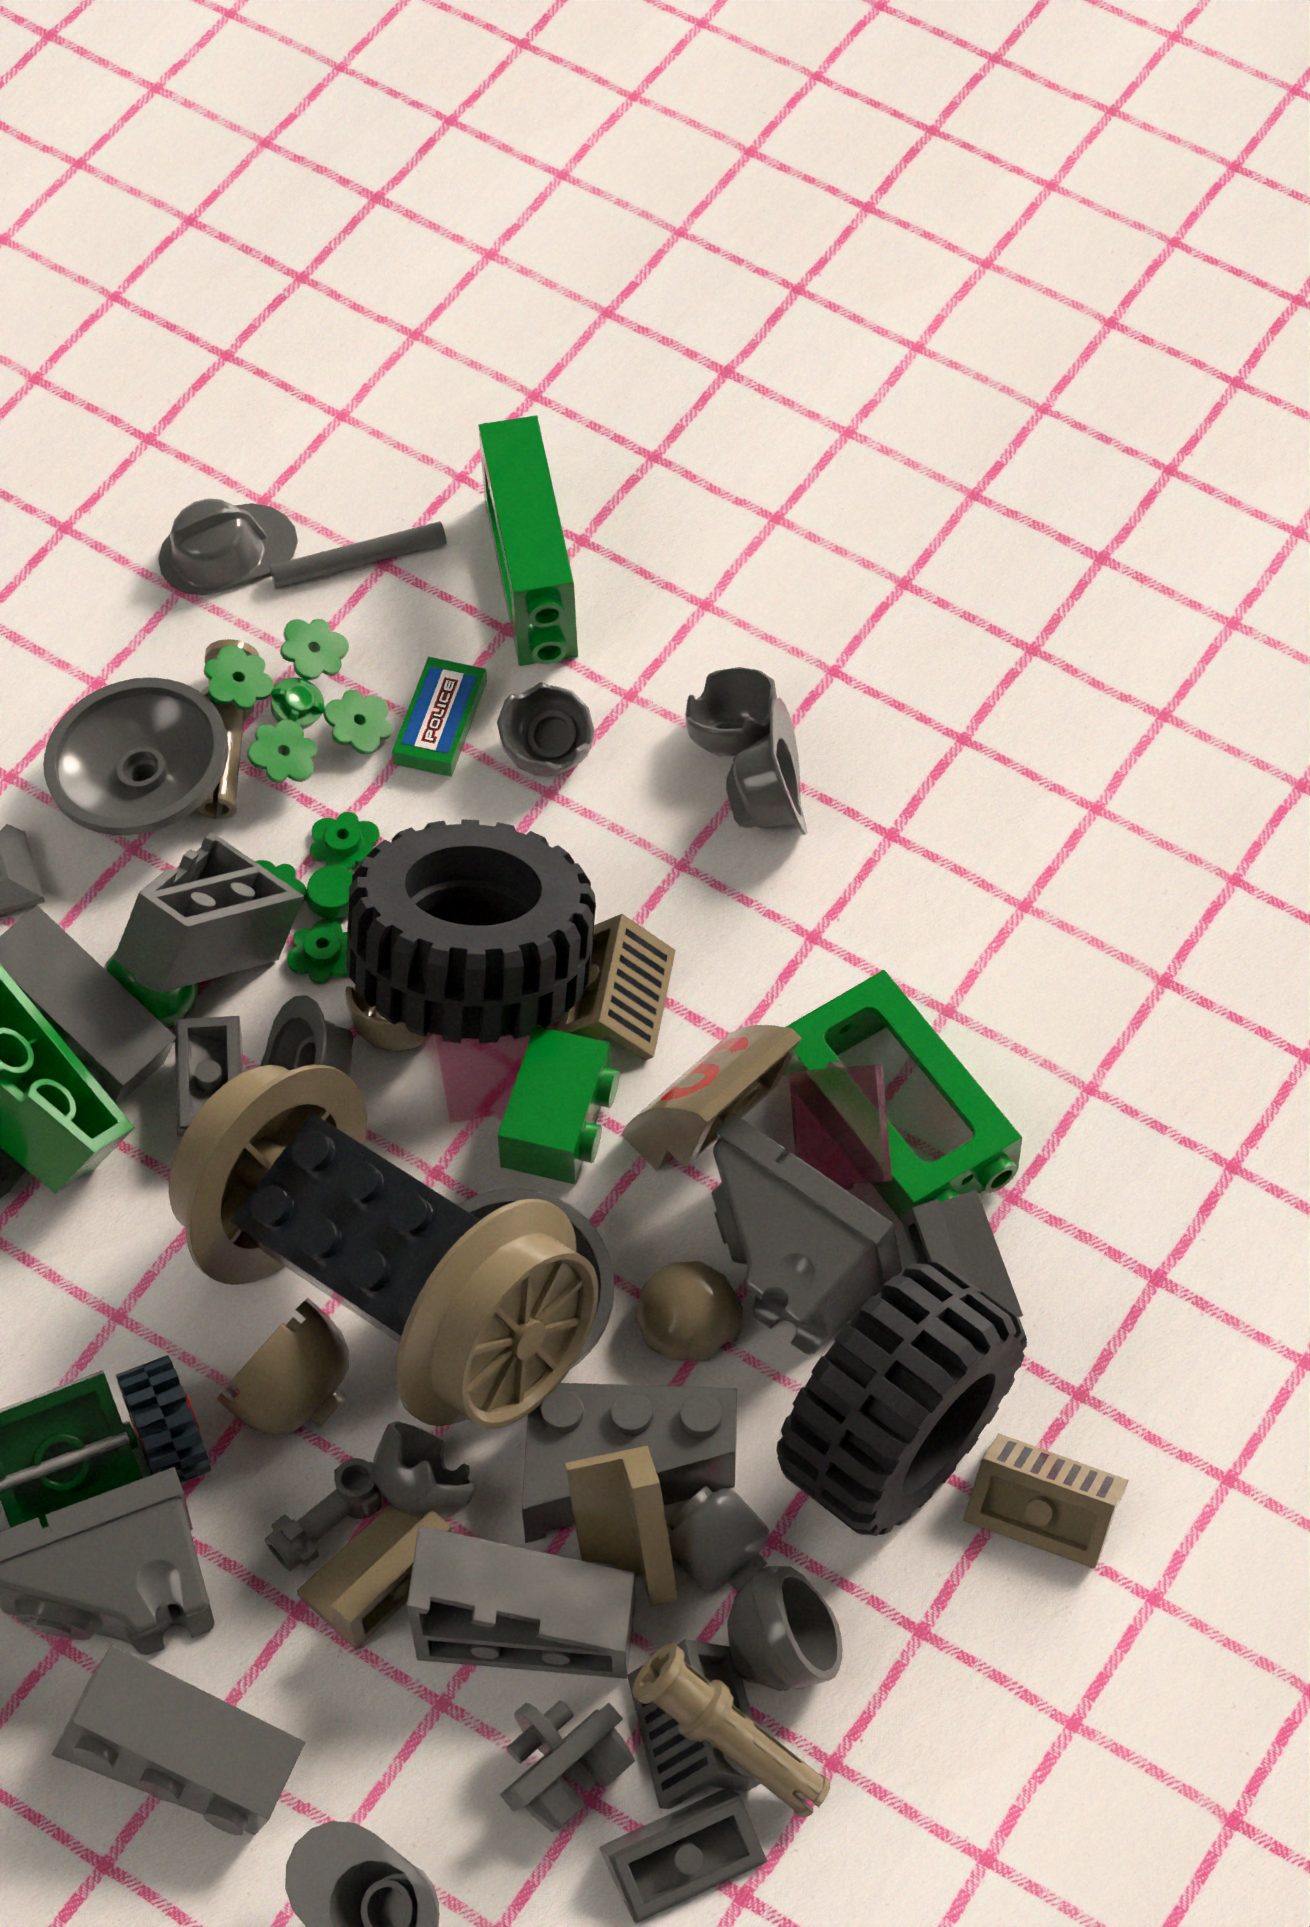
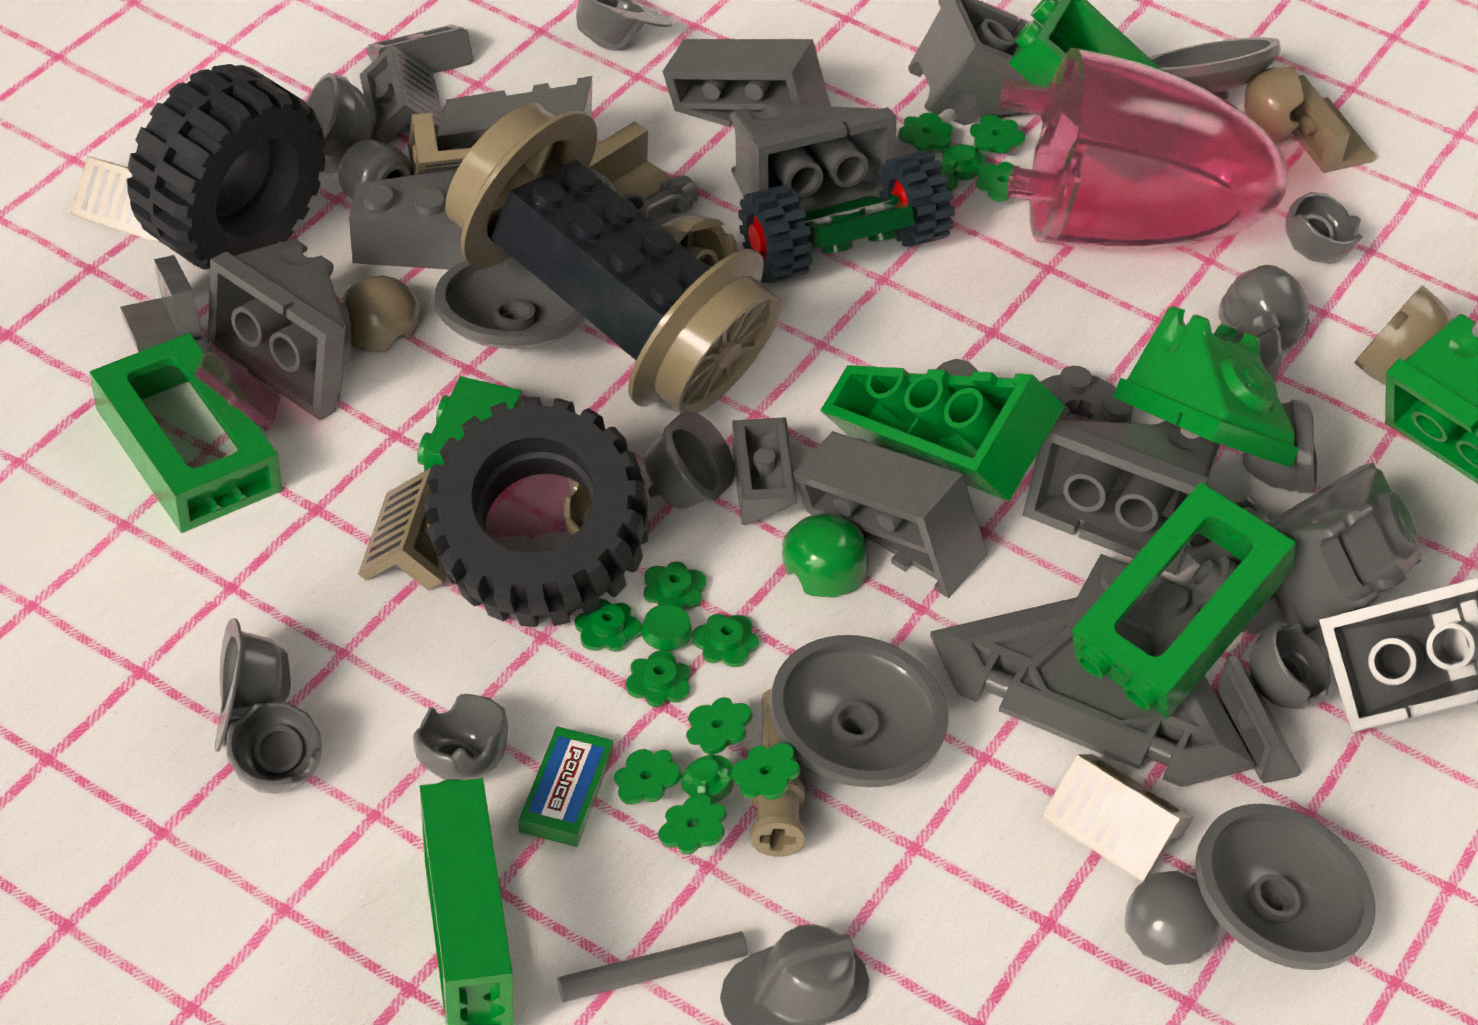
camera: 175 degrees right, 10 degrees down
(207, 919) = (777, 539): dark grey wedge -> none
(591, 1742) = (497, 70): dark grey hips -> none
(708, 1713) = (394, 51): dark tan pin -> none
(724, 1081) = (339, 385): dark tan slope -> none

